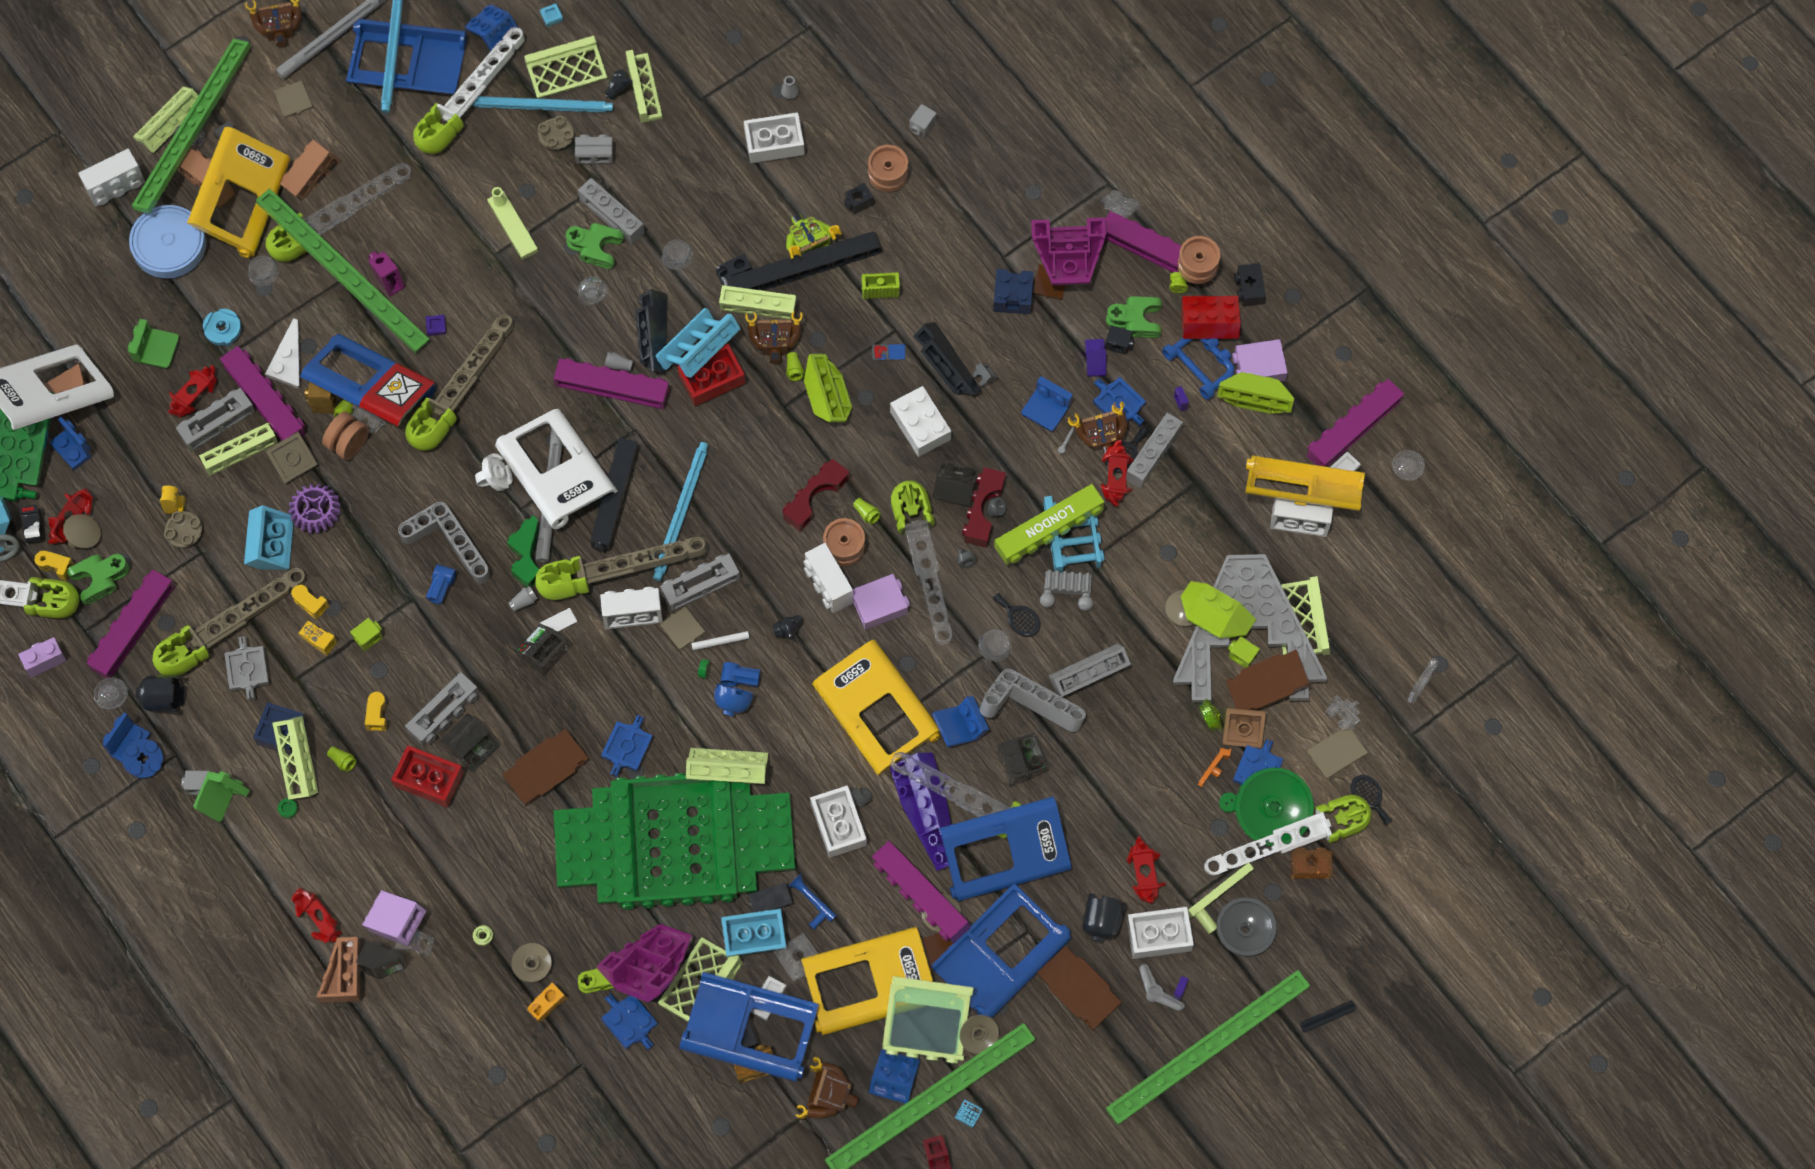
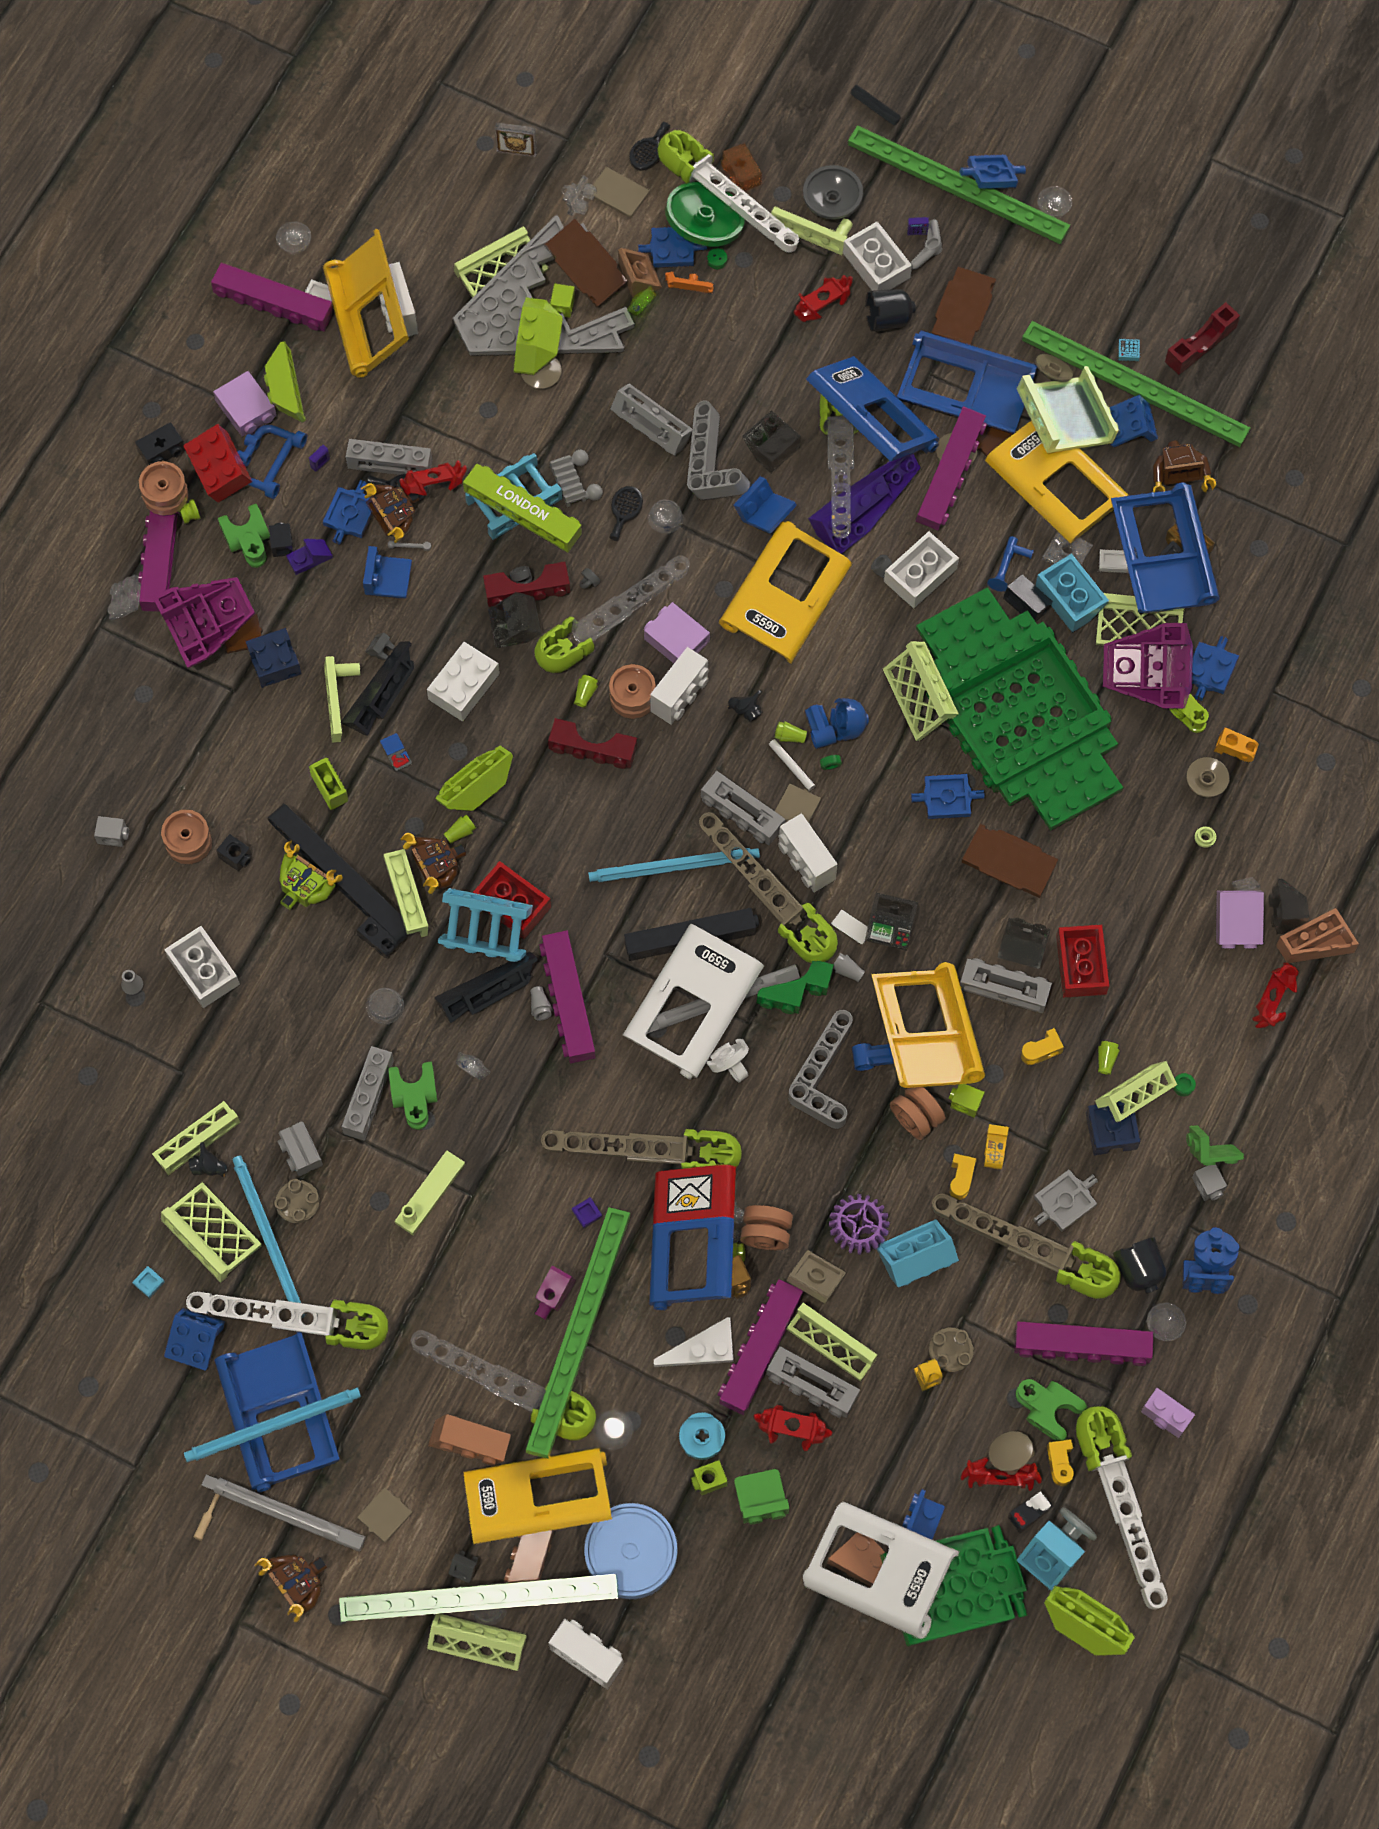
camera: 115 degrees left, 0 degrees up
(188, 324) = (714, 1469): none -> lime brick
(374, 587) = (917, 1111): none -> nougat wheel
(408, 614) = (930, 1057): none -> yellow piece
(747, 650) = (789, 733): none -> lime cone
(979, 328) = (331, 672): none -> yellowish green piece
(1150, 1124) = (1055, 201): none -> clear hat
(1205, 1081) = (992, 171): none -> blue plate

